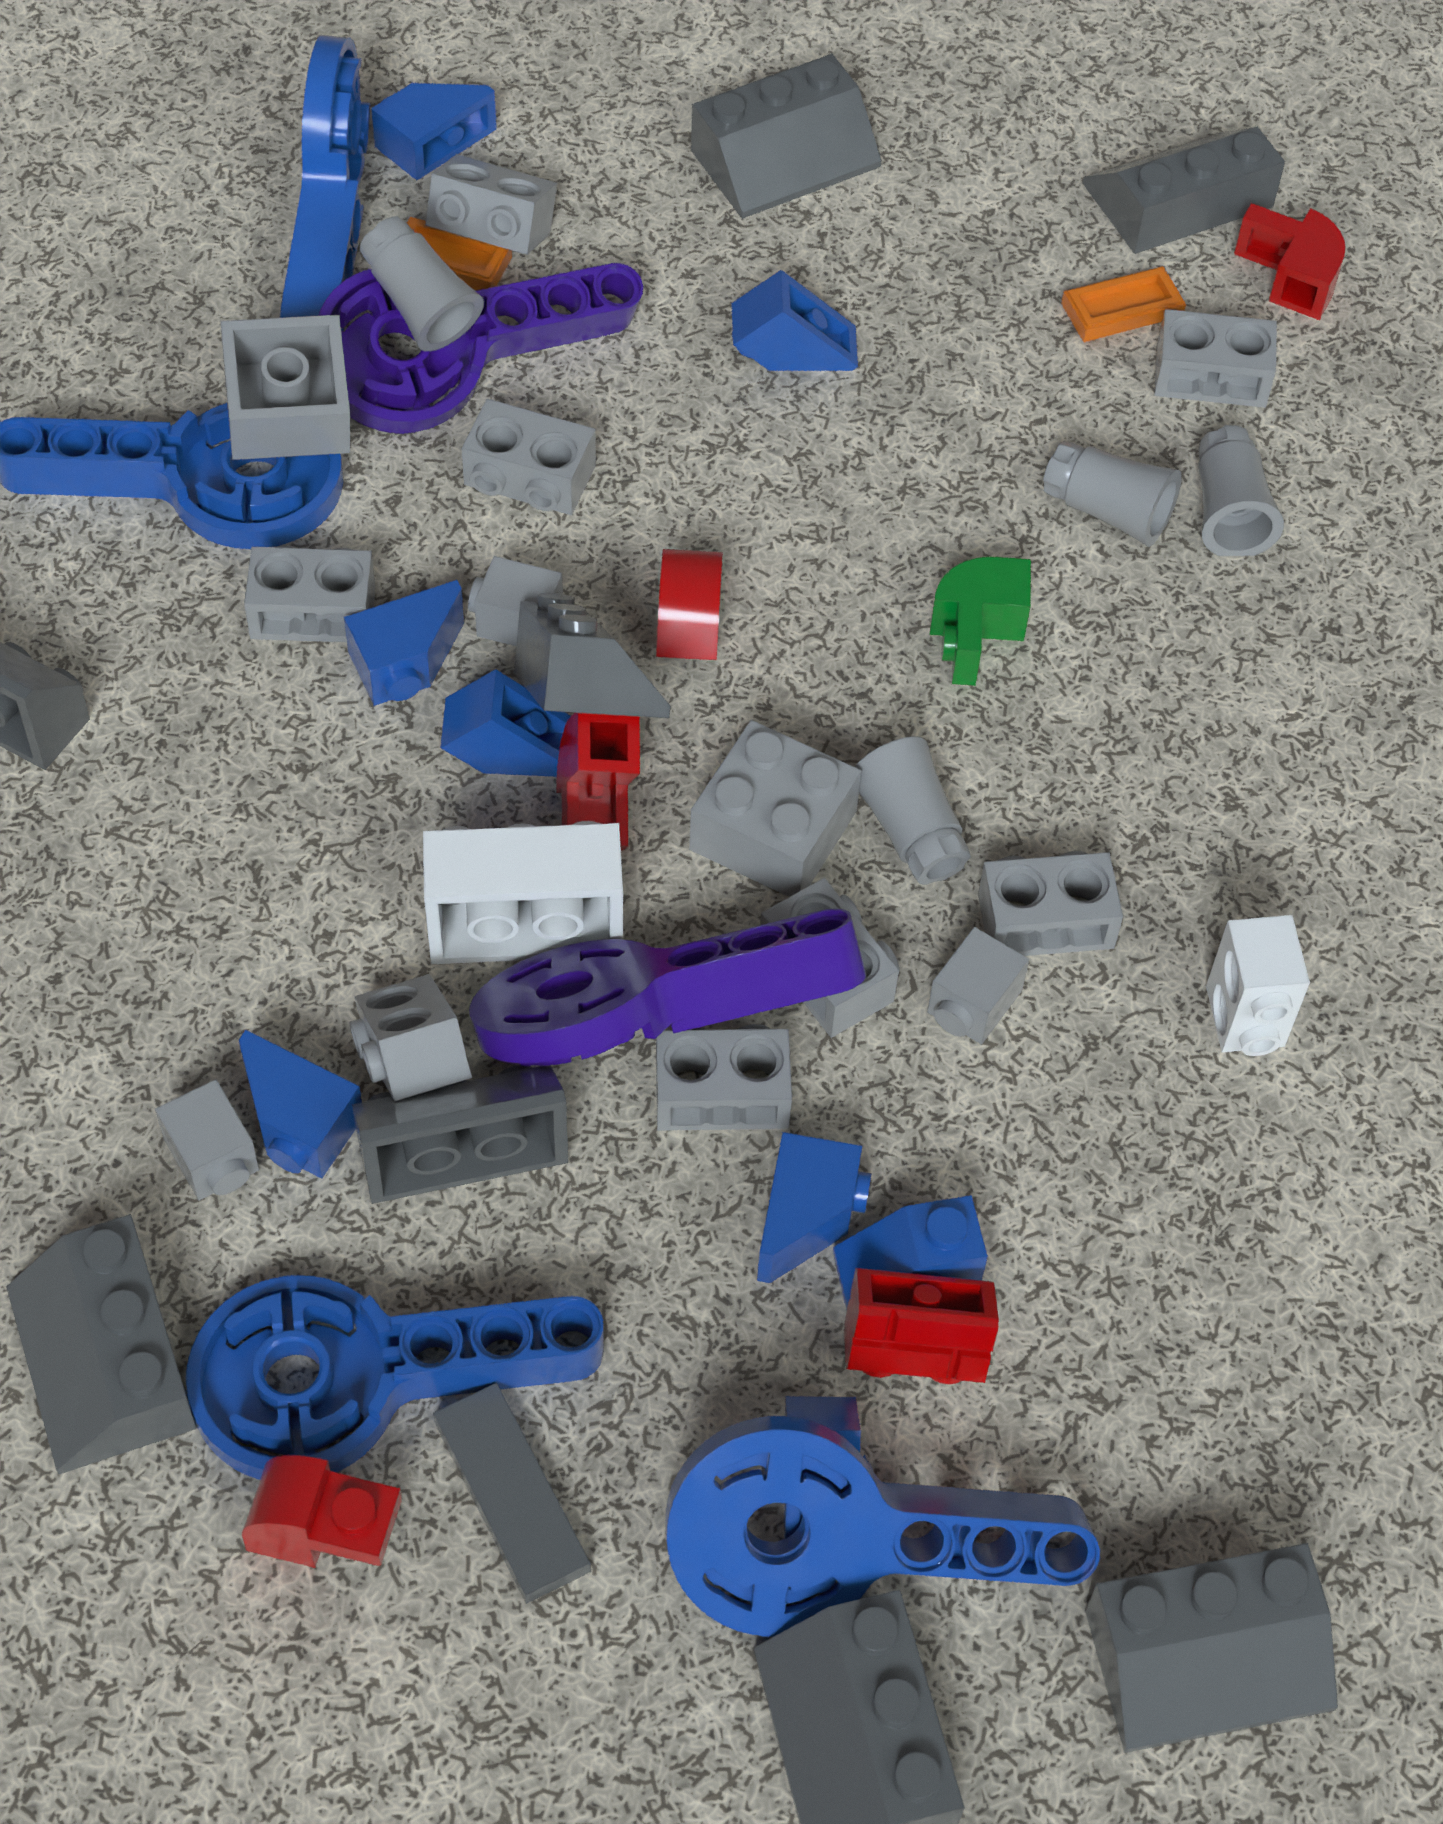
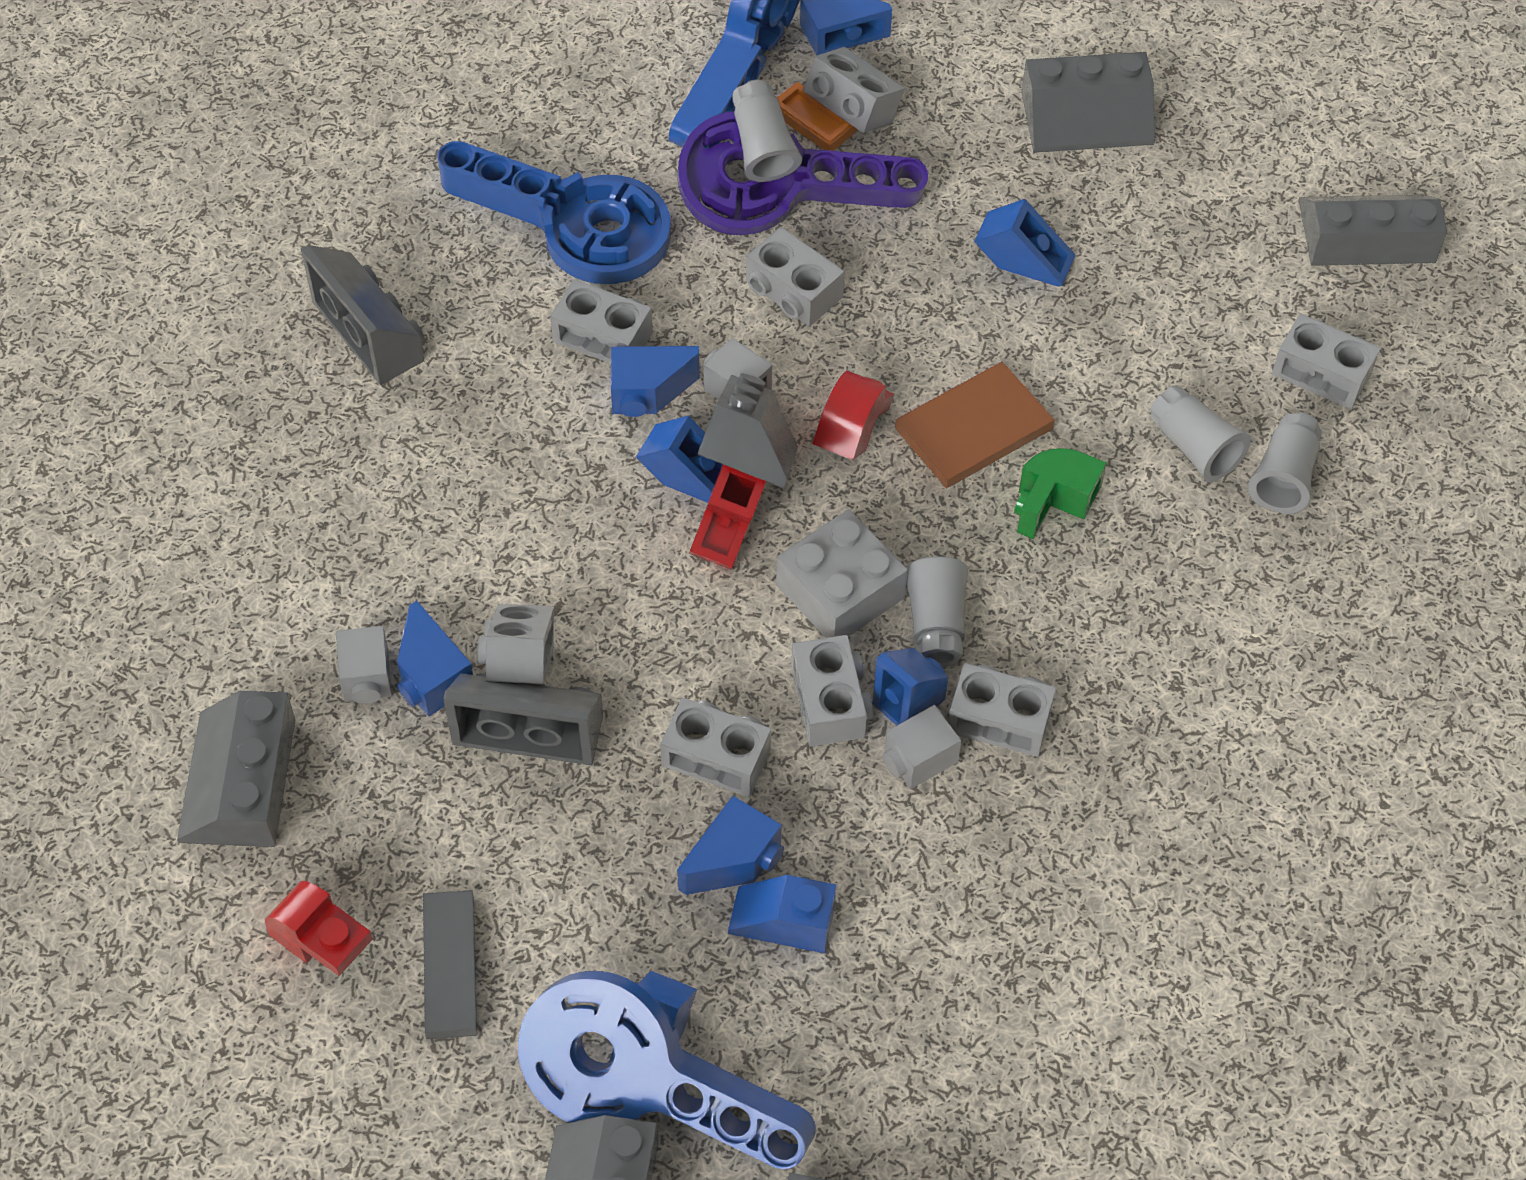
camera: 25 degrees right, 0 degrees up
(286, 387) = (641, 176): light grey brick -> none
(365, 1372) = (394, 851): blue beam -> none
(520, 889) = (639, 573): white brick -> none
(605, 990) = (656, 655): dark purple beam -> none
(837, 569) = (974, 424): none -> dark orange tile
(920, 1326) = (762, 958): red brick -> none
(927, 918) = (907, 684): none -> blue slope
(1121, 303) = (1280, 299): orange tile -> none
(1257, 984) = (1114, 816): white brick -> none
(1303, 253) = (1431, 305): red brick -> none

